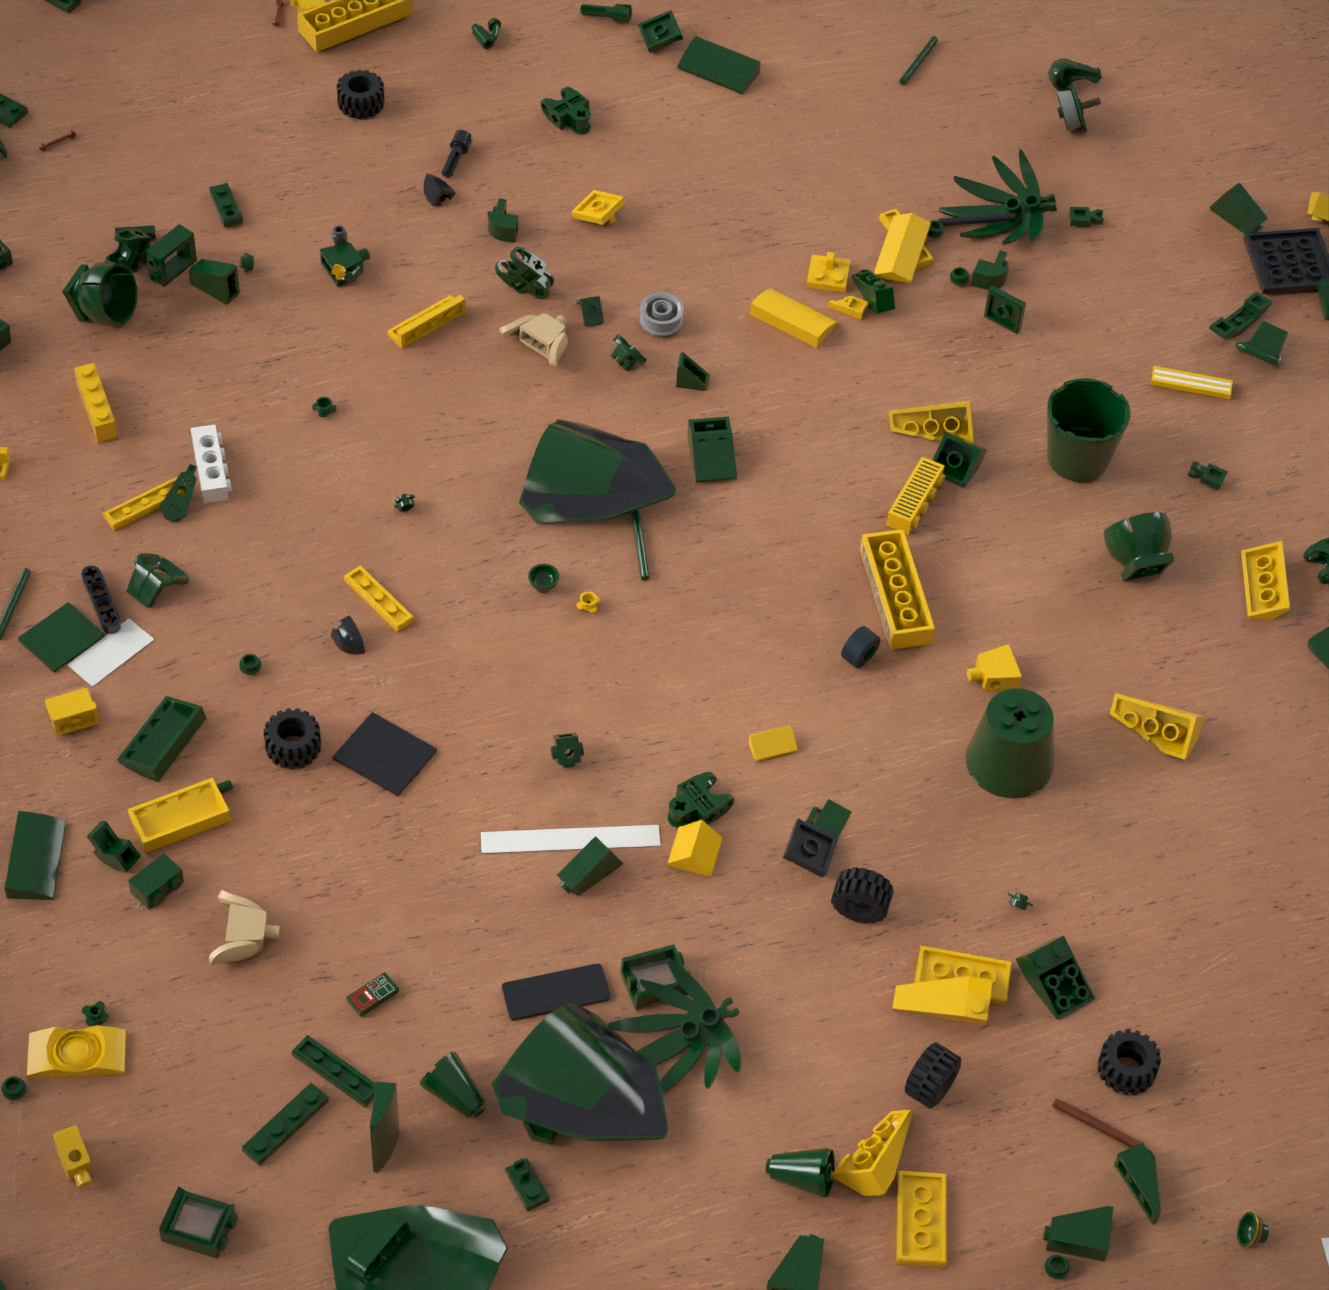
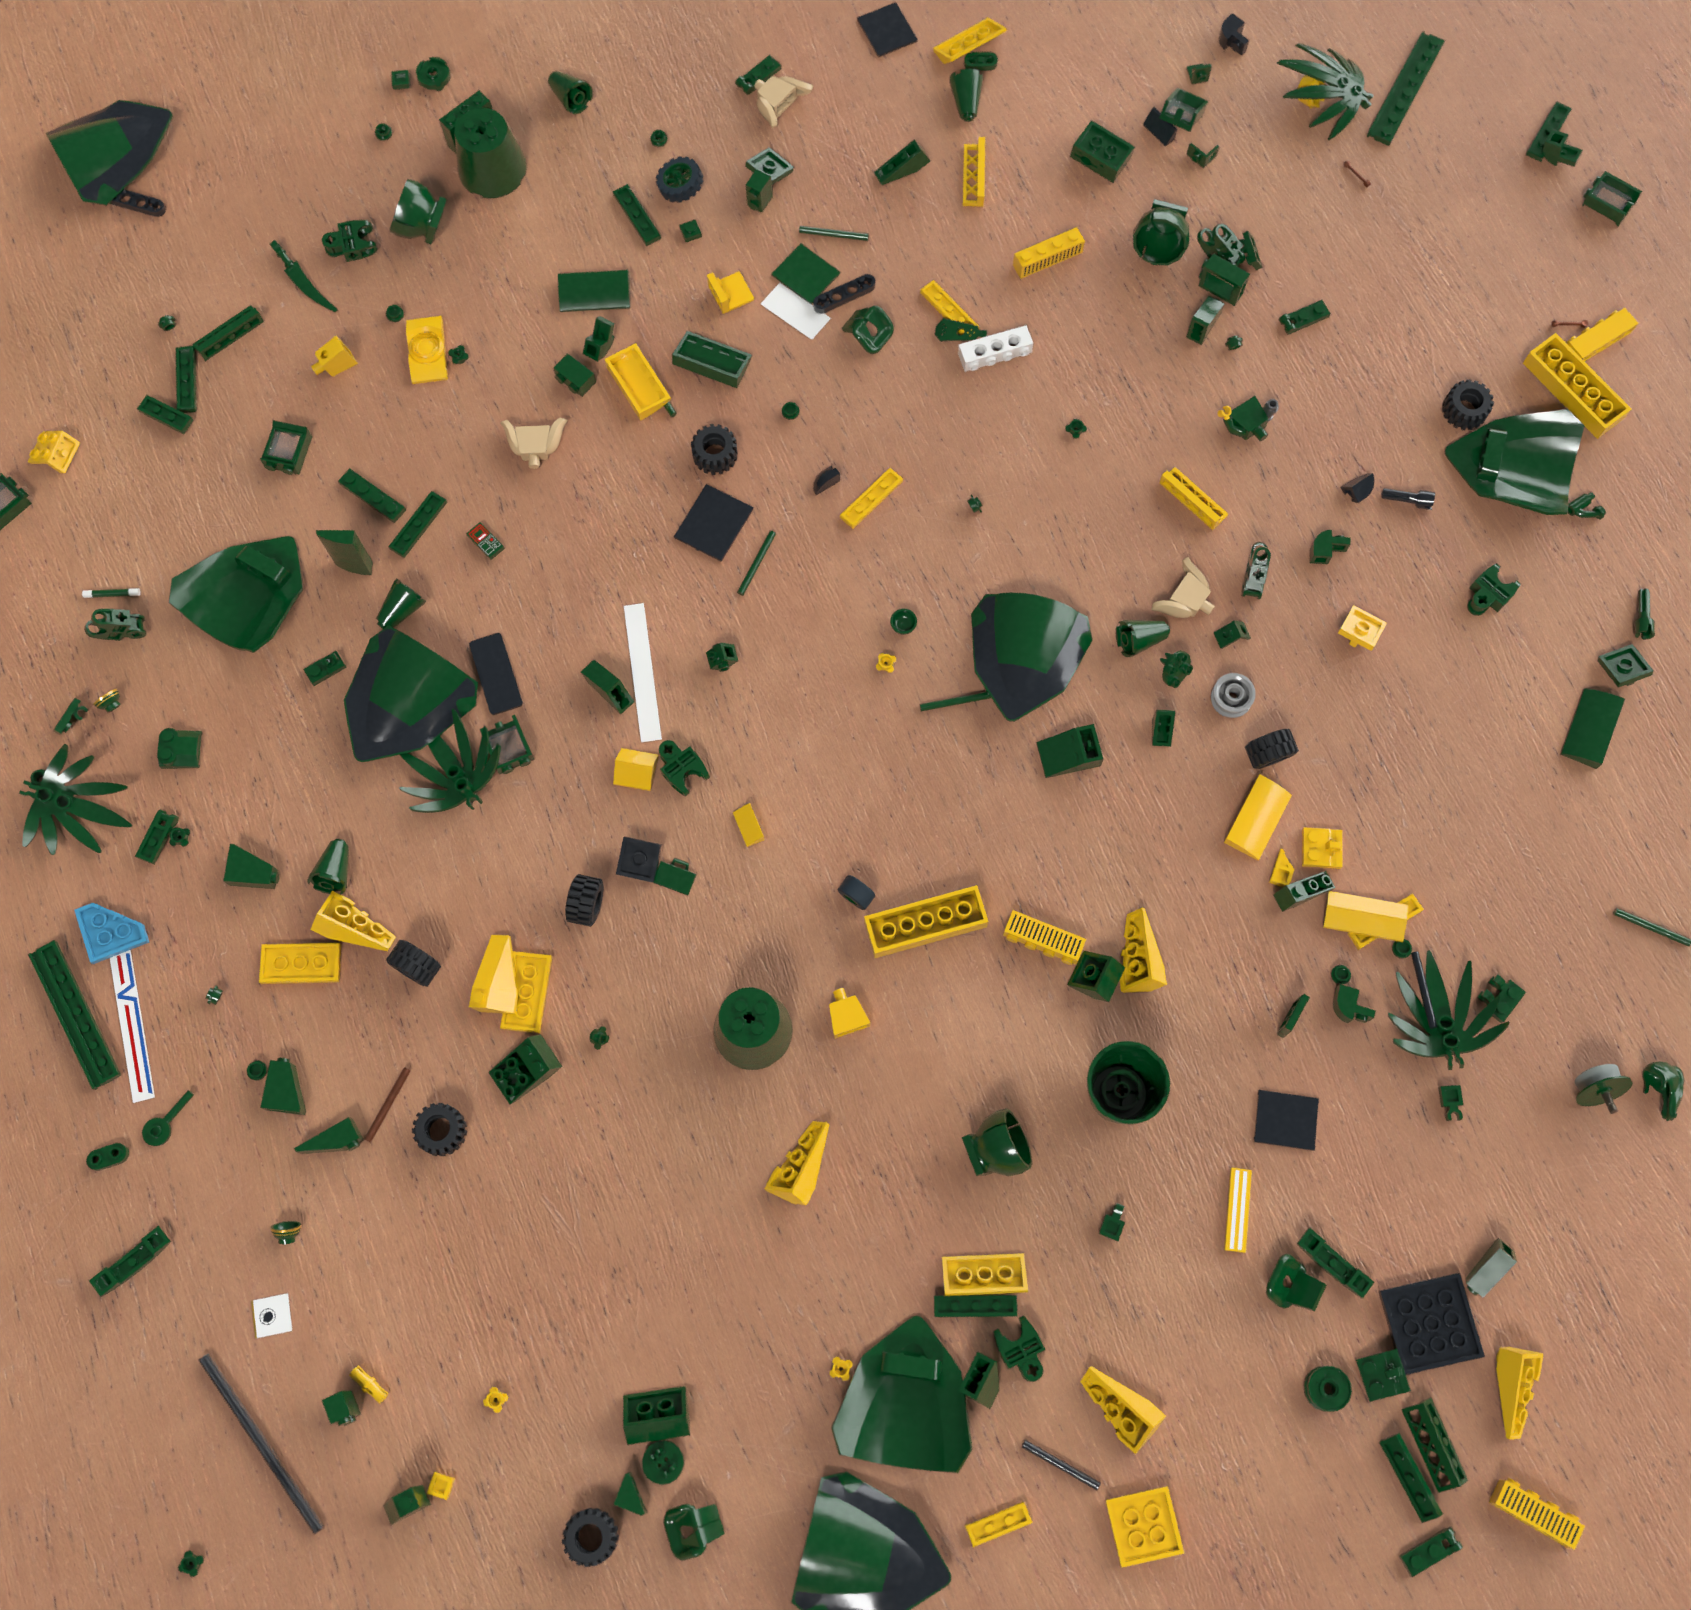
camera: 90 degrees right, 20 degrees up
(429, 71) = (1521, 460): none -> dark green windscreen
(445, 714) = (756, 563): none -> dark green bar
(587, 380) = (1140, 635): none -> dark green cone
(727, 286) = (1271, 748): none -> black tyre
(984, 166) = (1509, 994): none -> dark green plate
(1102, 337) = (1286, 1120): none -> black piece
(1298, 592) = (975, 1306): none -> dark green plate

